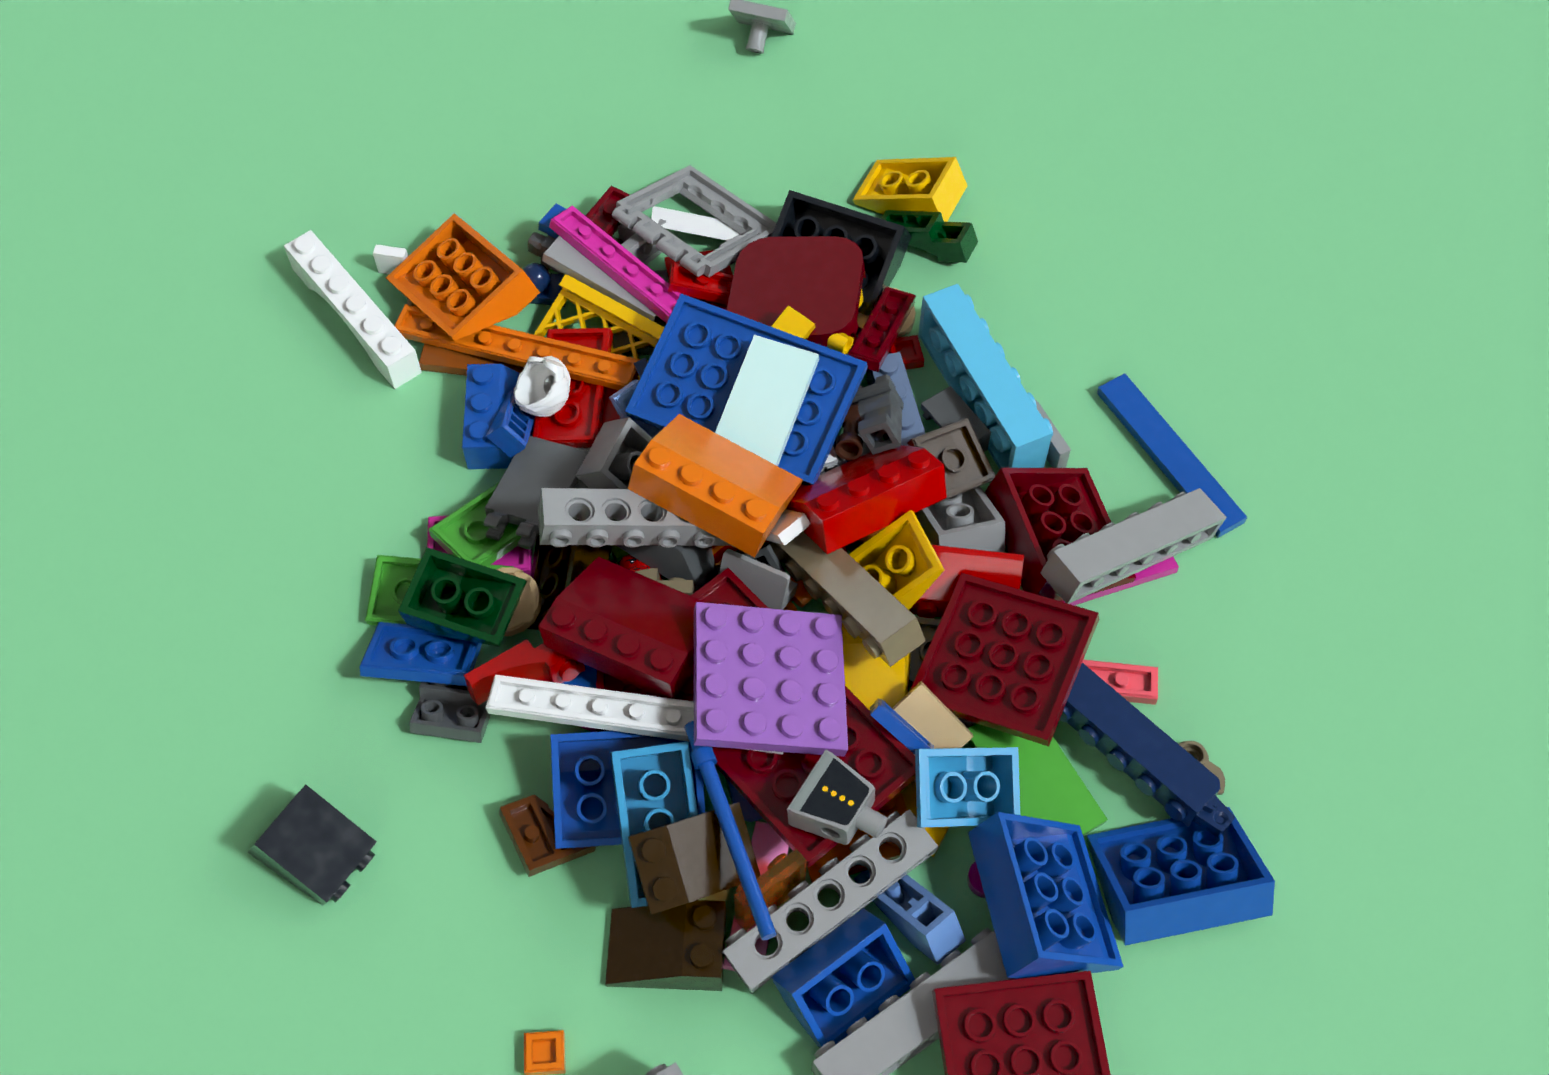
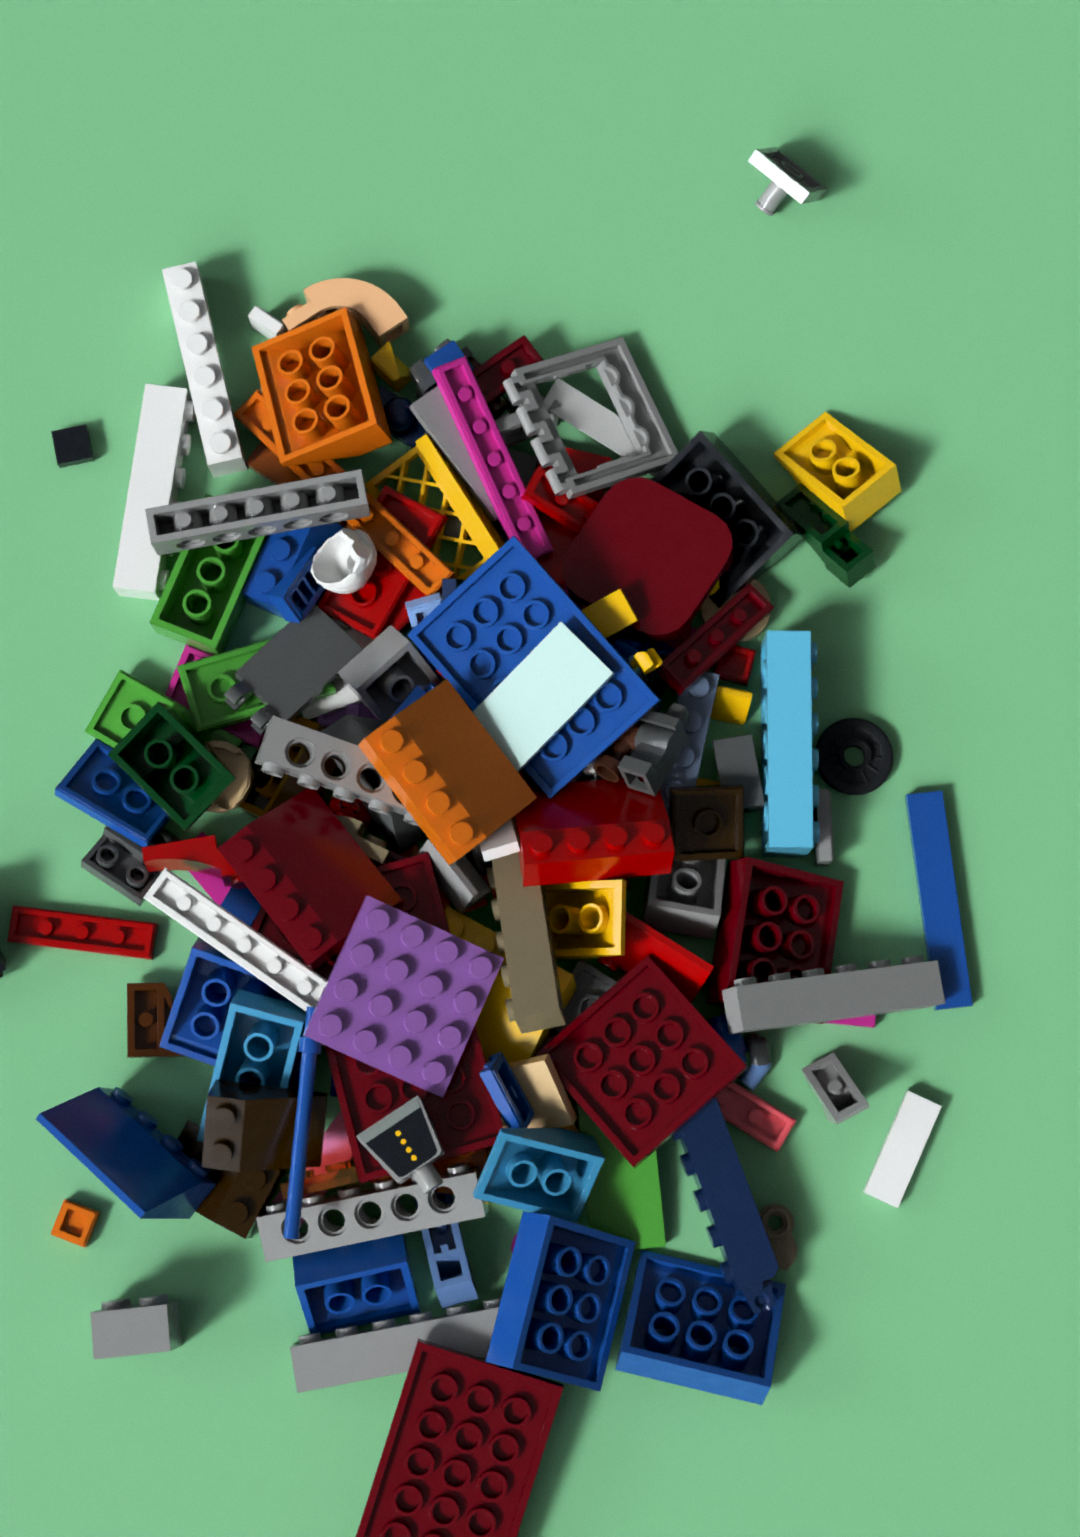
camera: 25 degrees right, 20 degrees up
(258, 409) = (72, 446): none -> black tile
(347, 414) = (153, 483): none -> white brick
(428, 450) = (206, 594): none -> bright green brick
(435, 789) = (82, 932): none -> red tile
(449, 370) = (258, 512): none -> light grey brick
(484, 215) = (365, 301): none -> light nougat arch
(511, 249) = (390, 368): none -> yellow slope
(577, 942) = (130, 1154): none -> blue slope
(922, 377) = (731, 705): none -> yellow slope
(1054, 367) = (867, 738): none -> black wheel
(1101, 642) = (760, 1061): none -> arm
(1178, 624) = (834, 1089): none -> light grey slope
(1259, 653) = (902, 1149): none -> white tile

